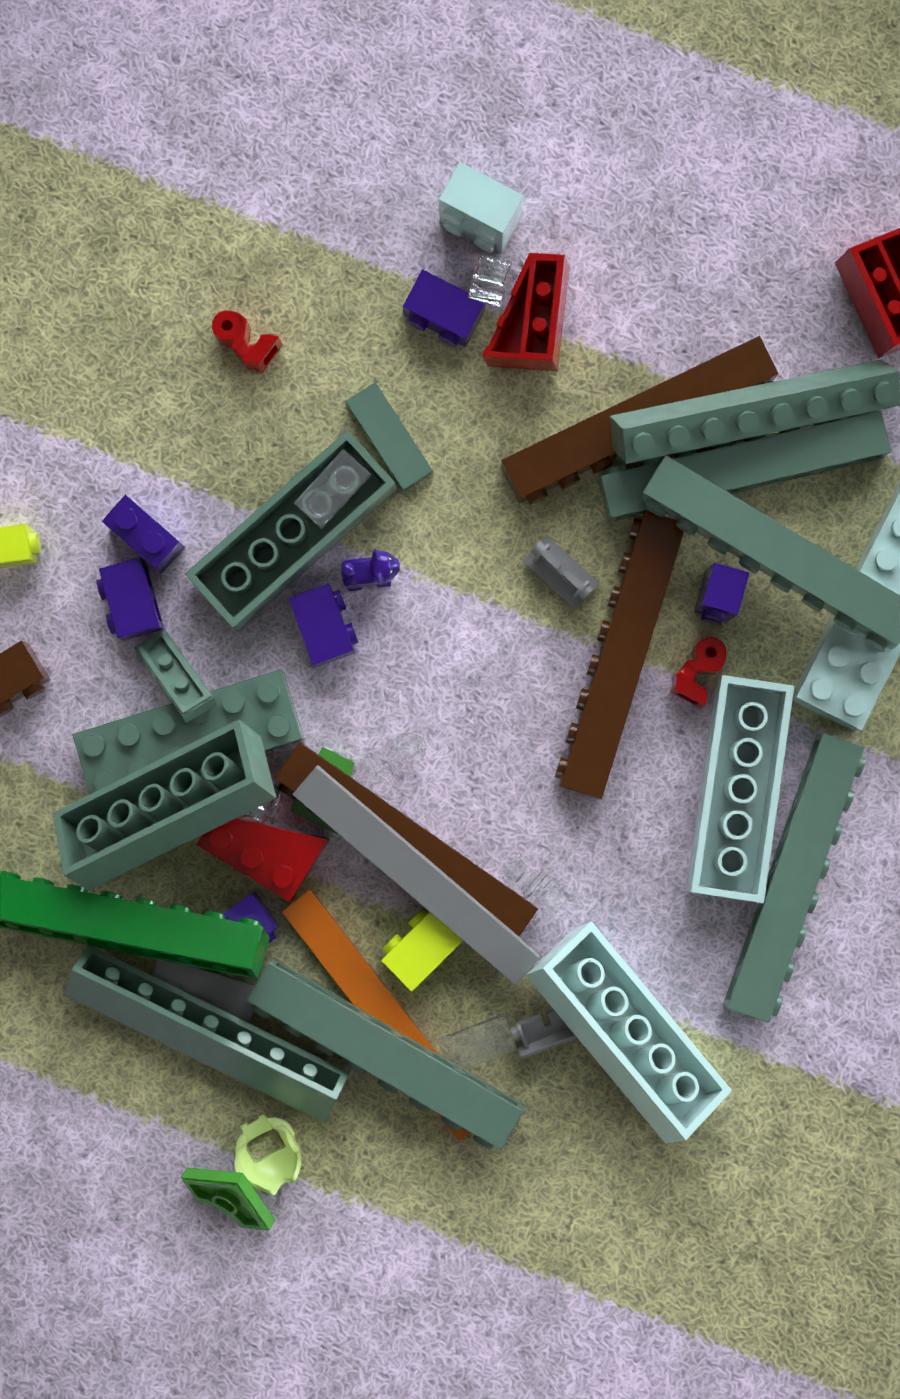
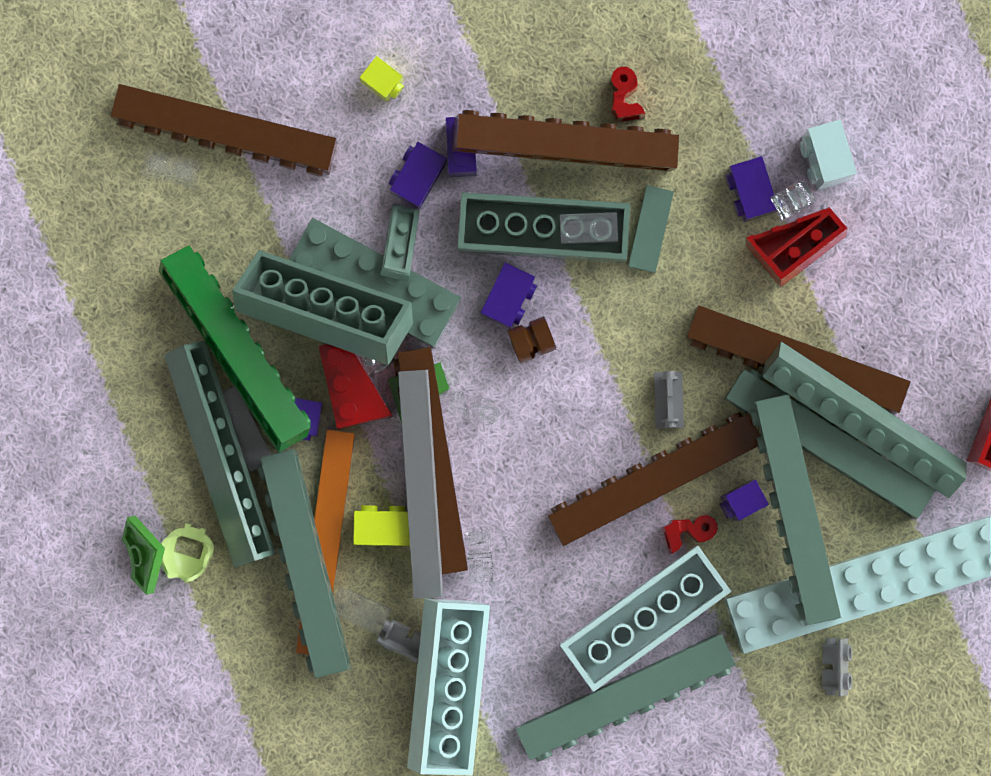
camera: 40 degrees right, 0 degrees up
(231, 435) = (565, 142): none -> reddish brown brick
(377, 571) = (568, 296): dark purple animal -> none
(383, 642) = (531, 339): none -> reddish brown wheel

